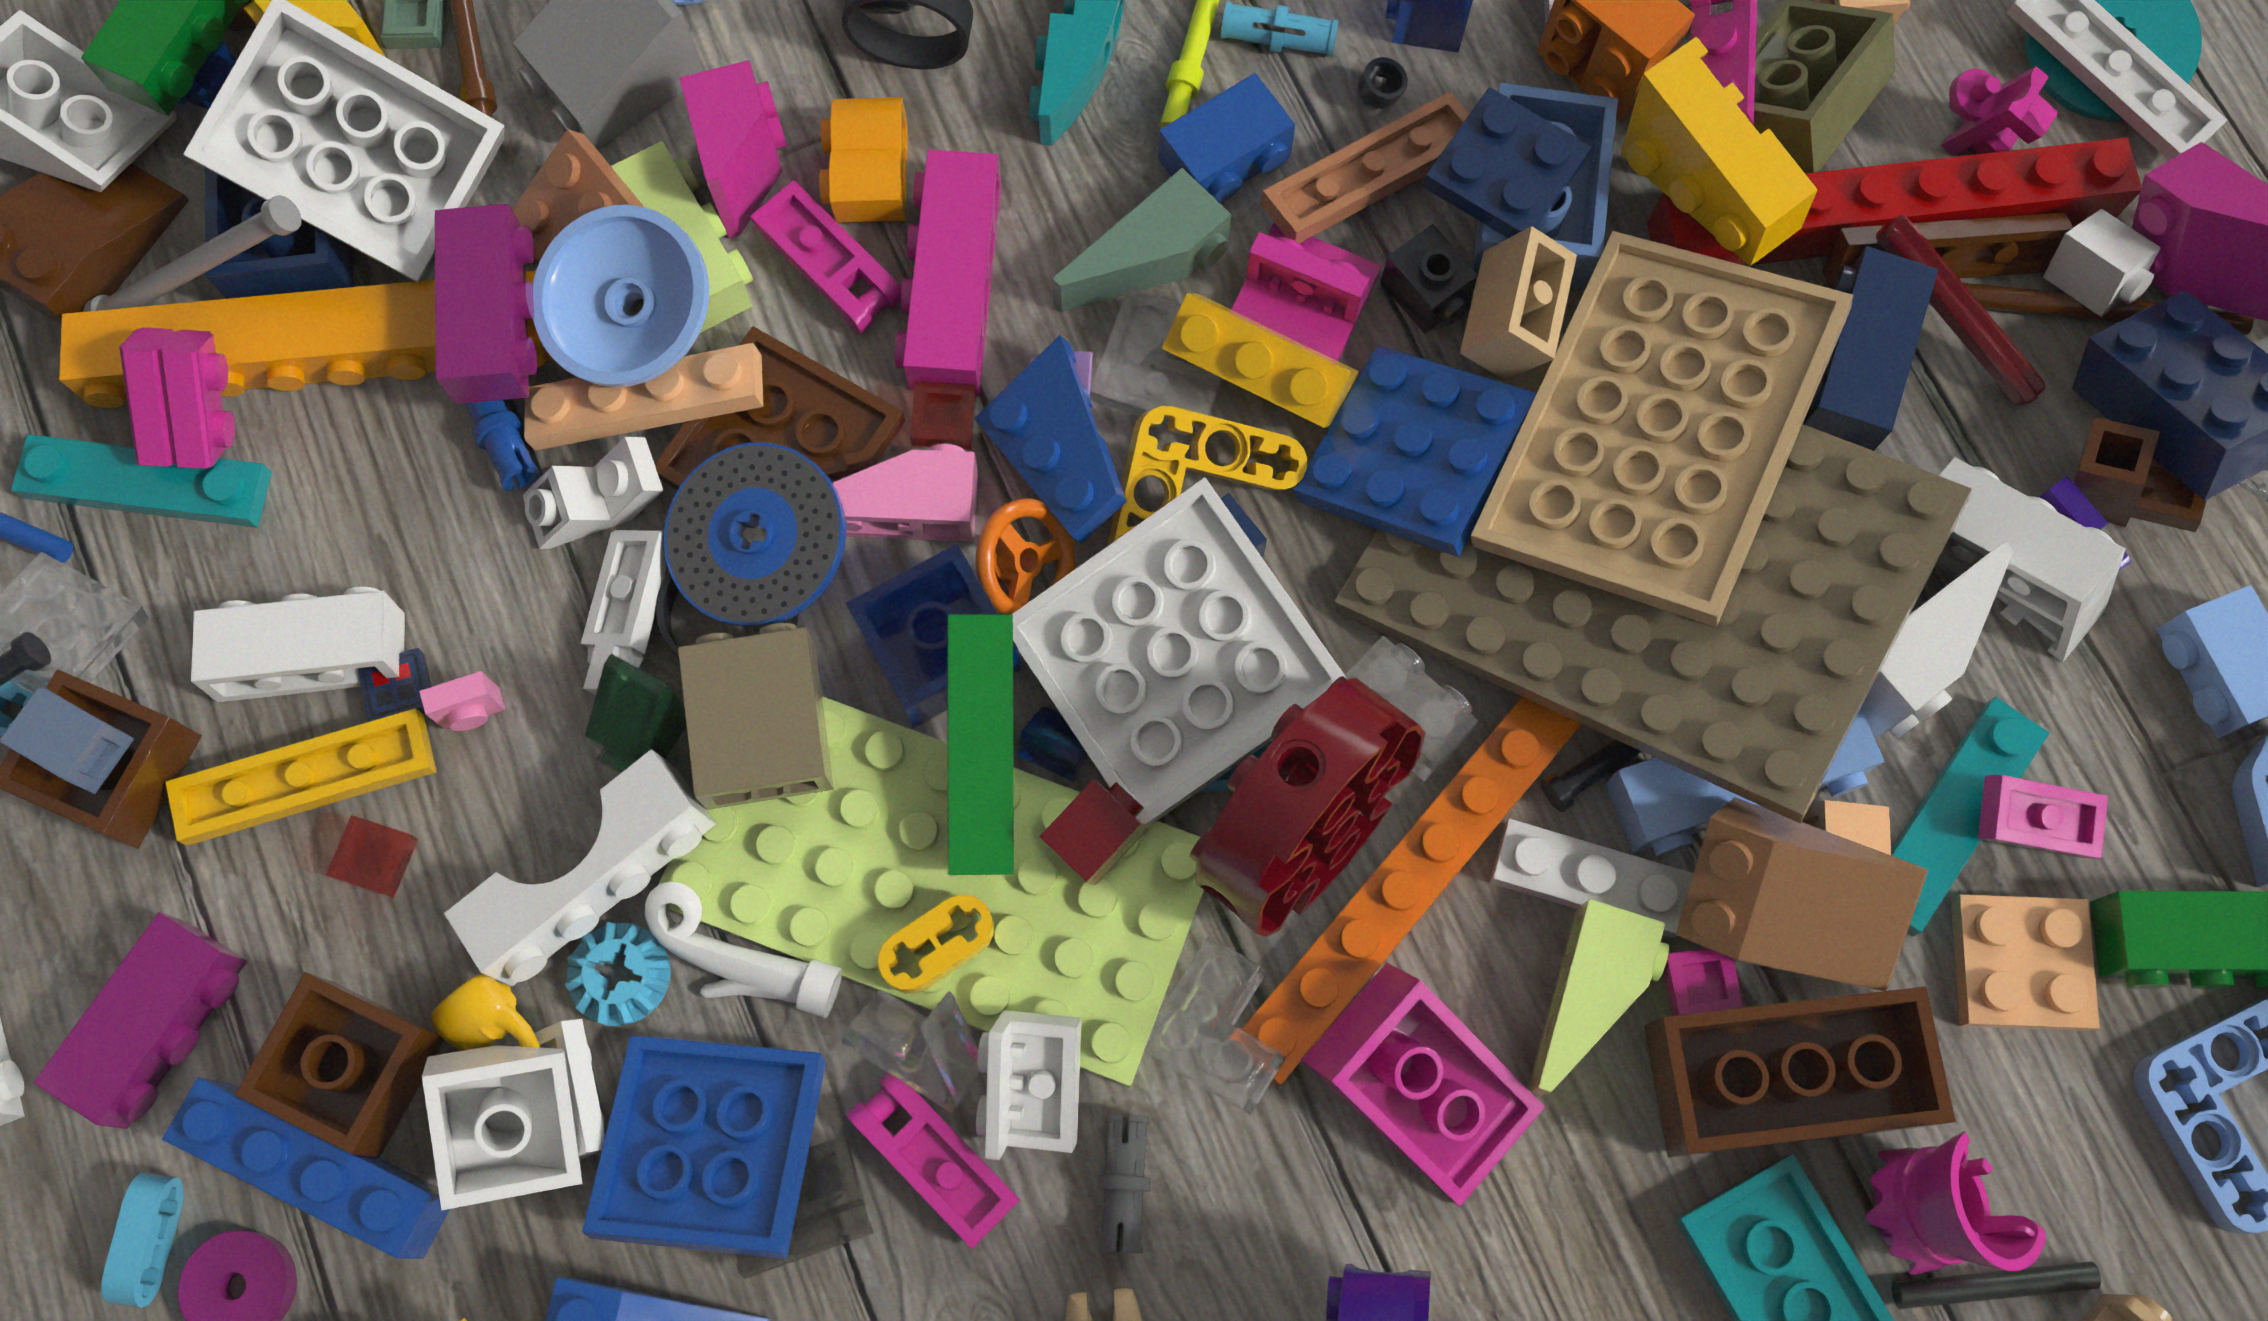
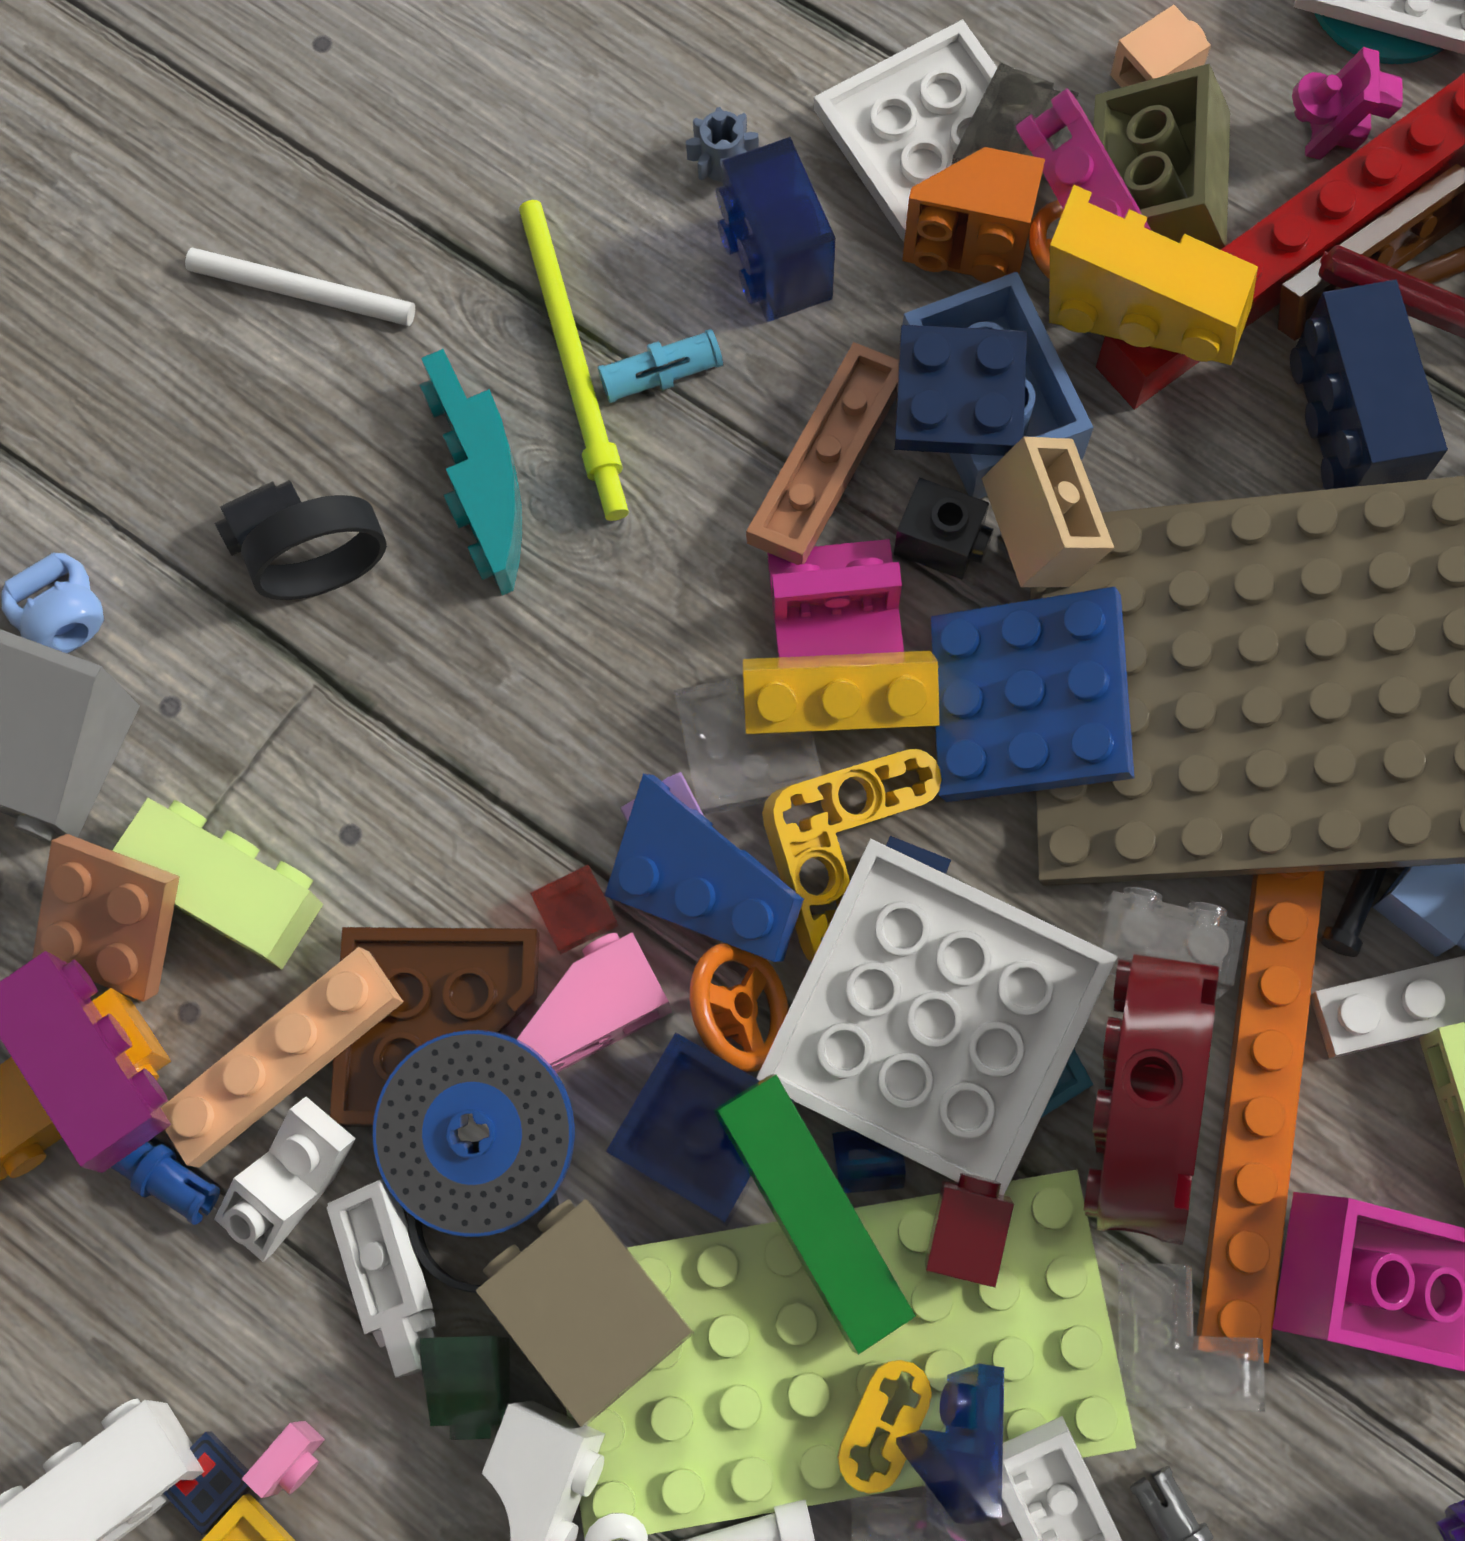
camera: 25 degrees left, 0 degrees up
(596, 275) = (165, 984): light blue dish -> none
(735, 139) = (219, 754): dark pink slope -> none
(826, 255) = (368, 817): dark pink plate -> none
(866, 160) = (352, 704): light orange brick -> none
(951, 268) = (499, 766): dark pink brick -> none
(977, 1001) = (967, 1458): none -> clear blue slope
(1149, 247) = (671, 637): sand green slope -> none
(1229, 138) = (680, 501): blue brick -> none
(1392, 85) = (795, 365): black hinge -> none
(1663, 426) = (1248, 557): tan plate -> none

